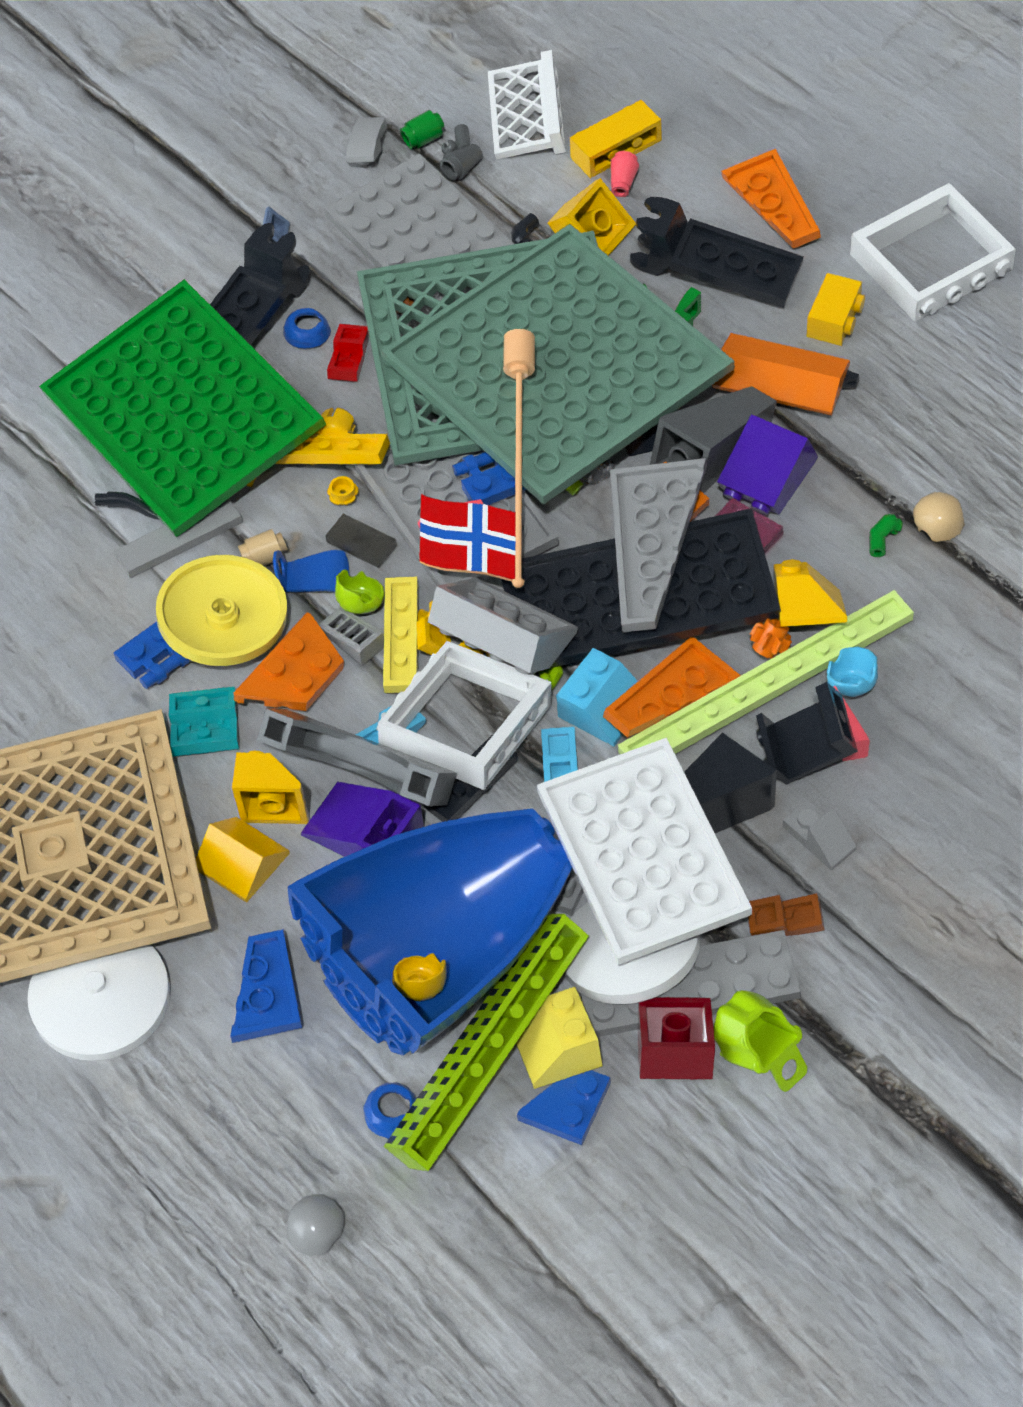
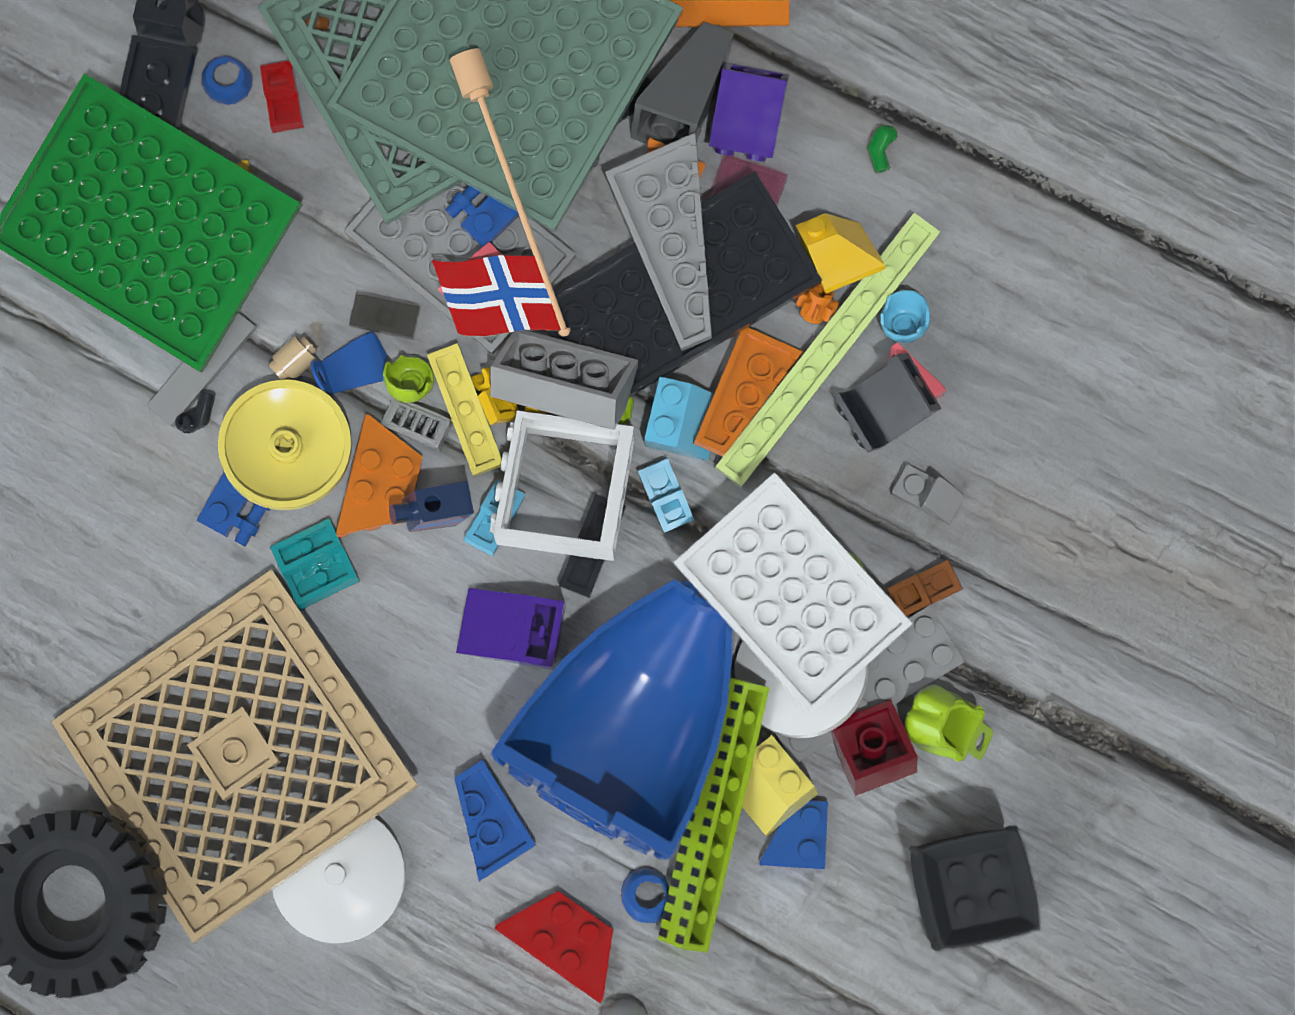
camera: 20 degrees left, 25 degrees up
(123, 500) = (127, 344): black animal -> none
(155, 574) = (198, 417): none -> black arm
(238, 857) = (409, 694): yellow slope -> none
(267, 790) = (409, 627): yellow slope -> none
(291, 1124) = (564, 940): none -> red wing
(333, 693) = (434, 507): none -> dark blue torso
(338, 444) = (323, 221): yellow plate -> none
(342, 485) = (340, 257): yellow plate -> none
(387, 766) = (423, 556): dark grey arch -> none
(420, 977) = (627, 768): yellow hair -> none
(726, 1187) = (975, 888): none -> black piece
(731, 783) = (835, 481): black slope -> none
(939, 516) = (927, 110): tan hair -> none

